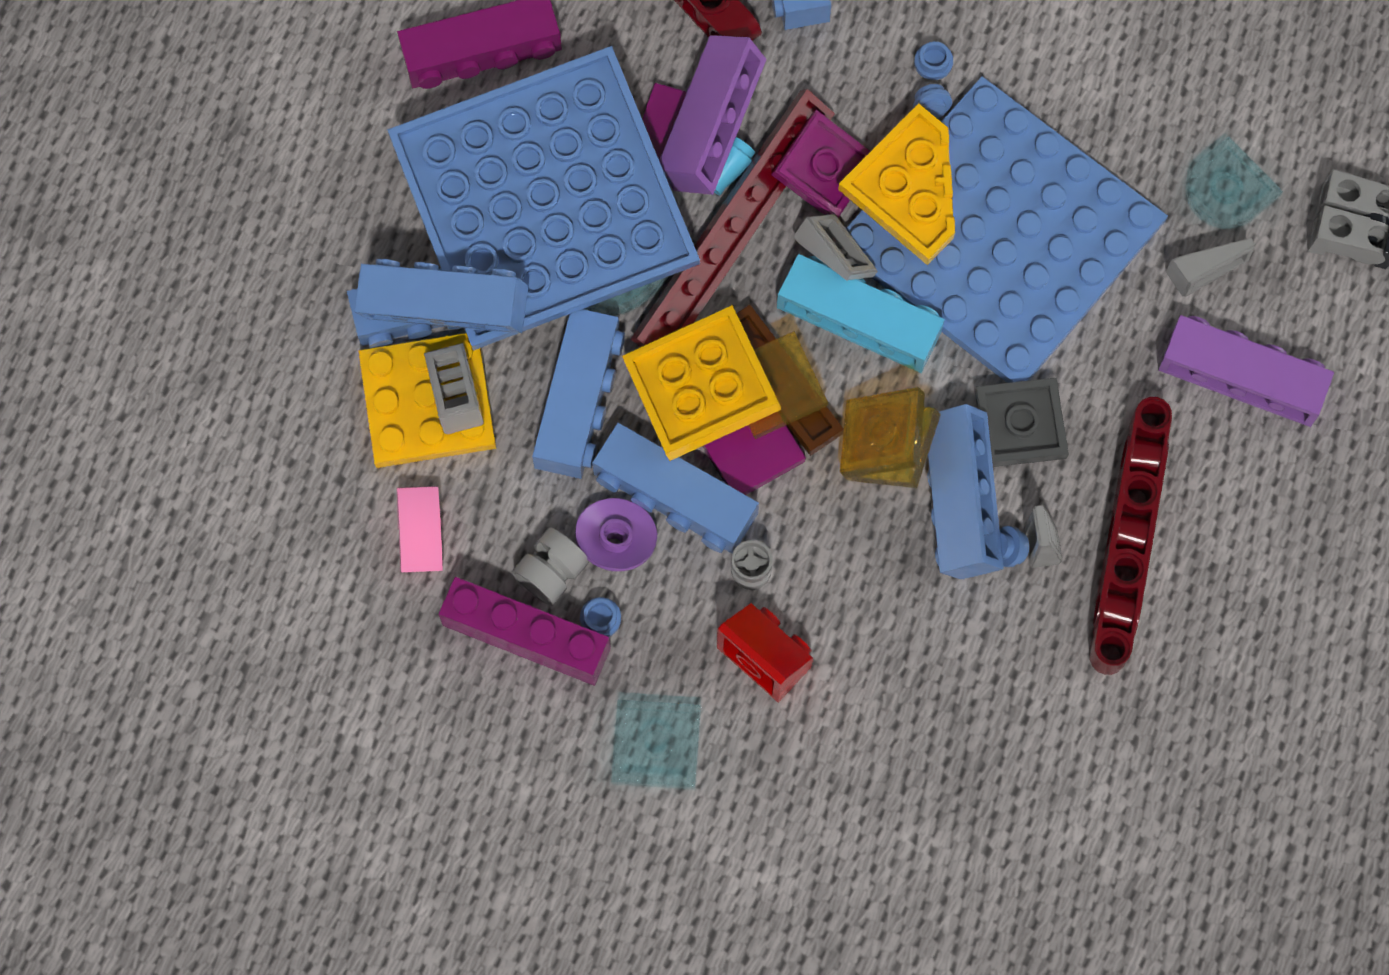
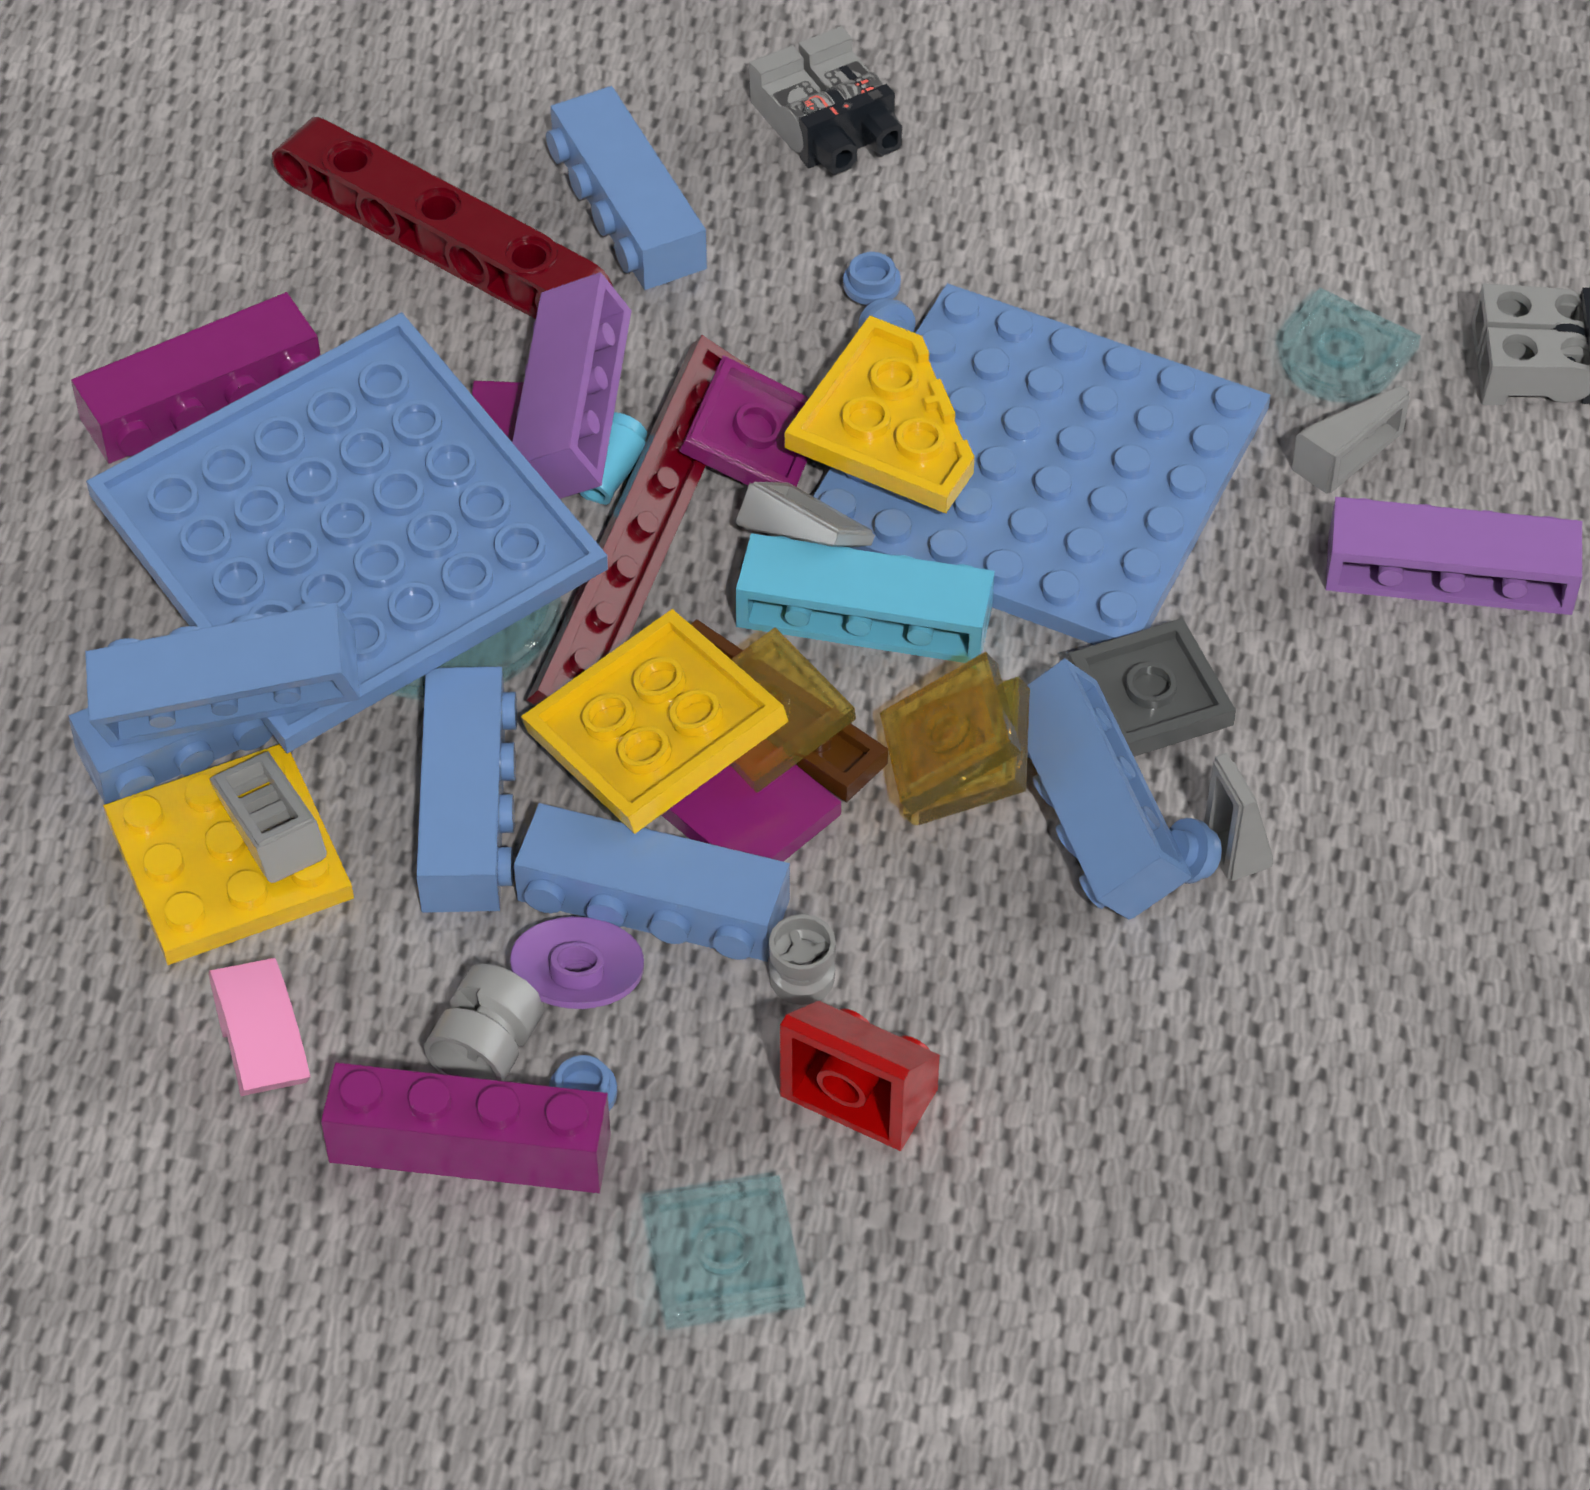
camera: 15 degrees left, 20 degrees down
(1130, 535) = (1367, 802): dark red beam -> none

